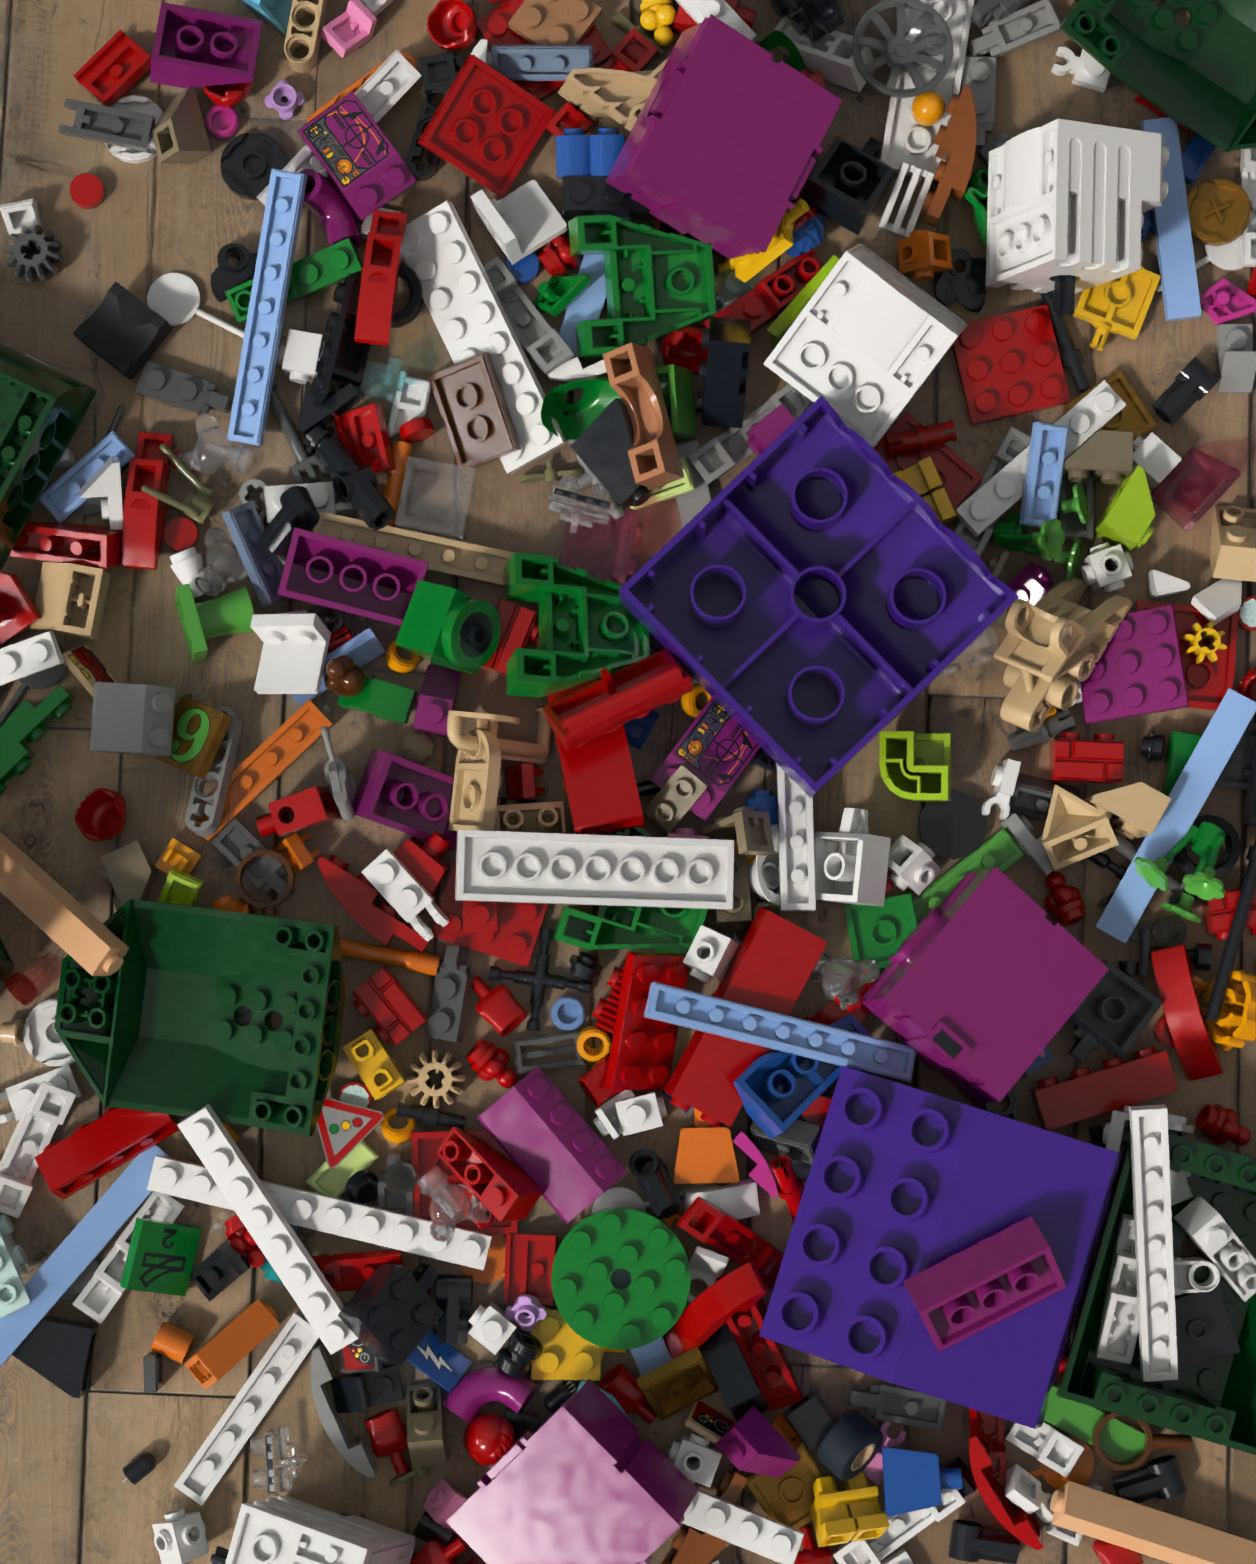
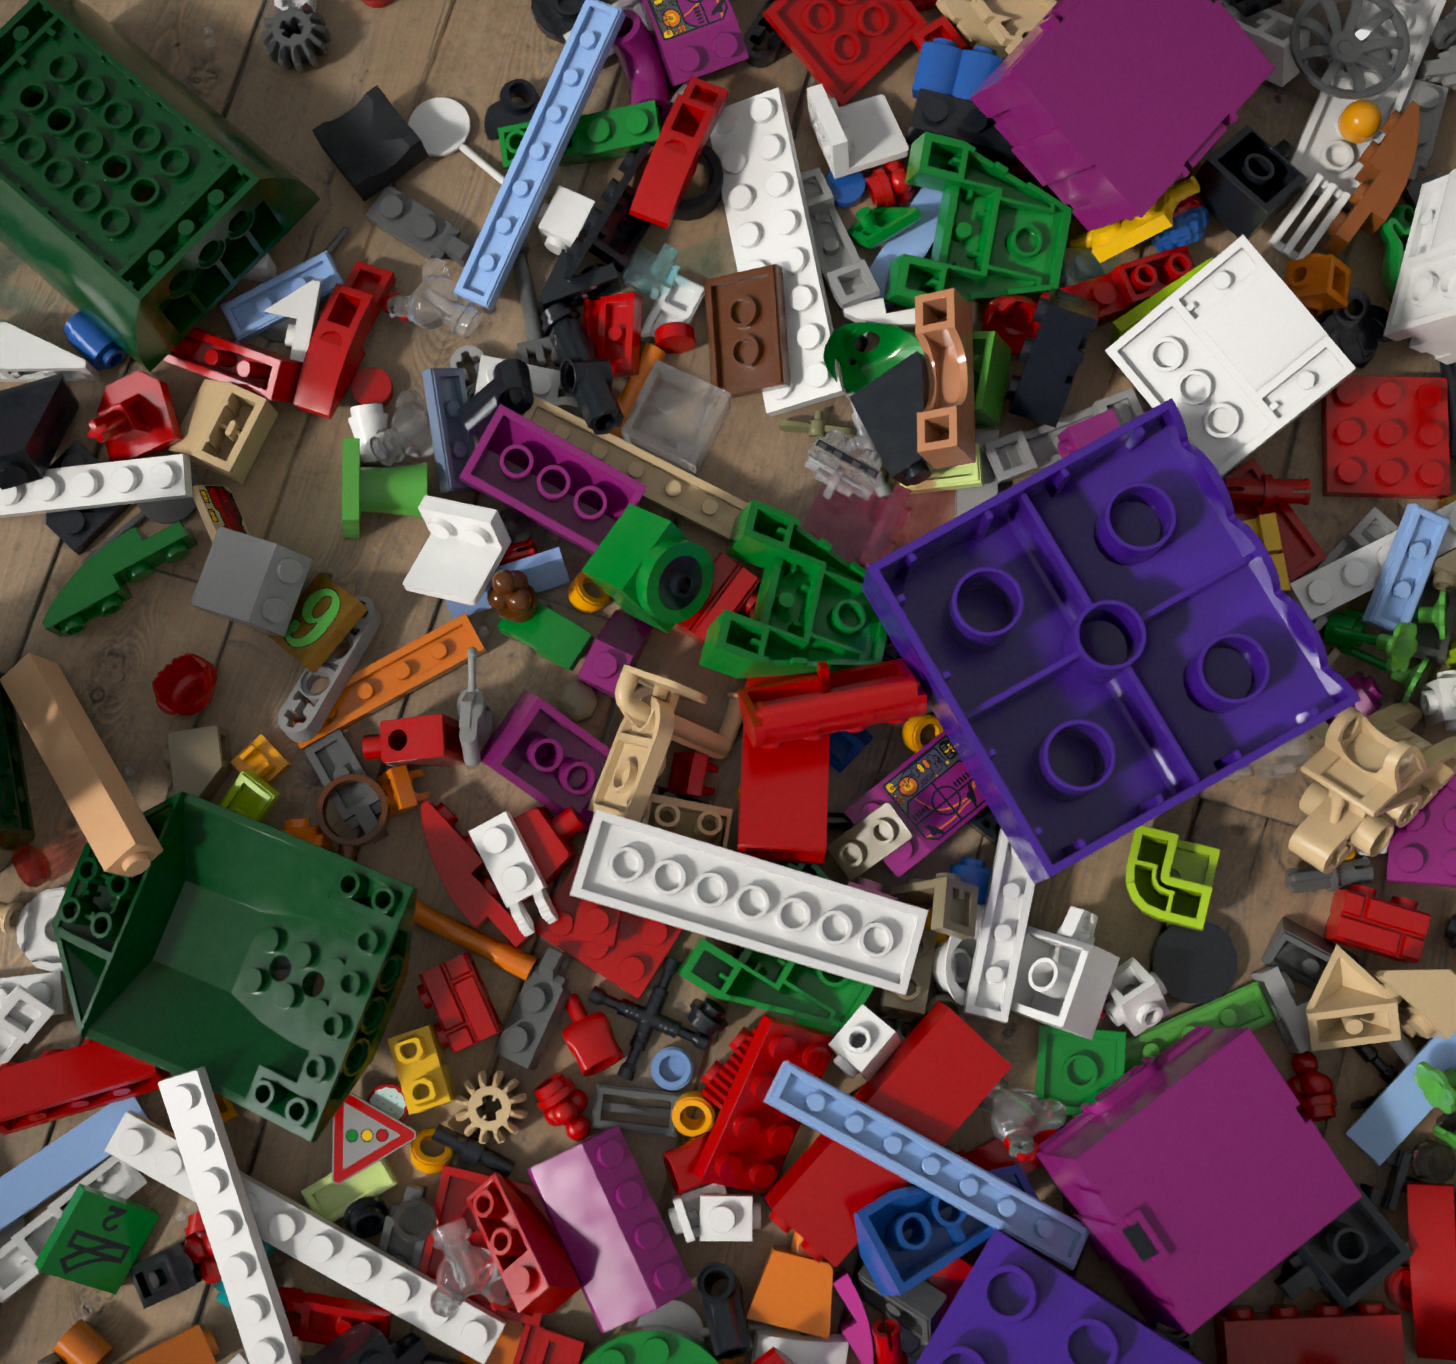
camera: 20 degrees right, 5 degrees down
(195, 505) = (396, 357): olive plant -> none
(1004, 782) = (1271, 924): white plate -> none

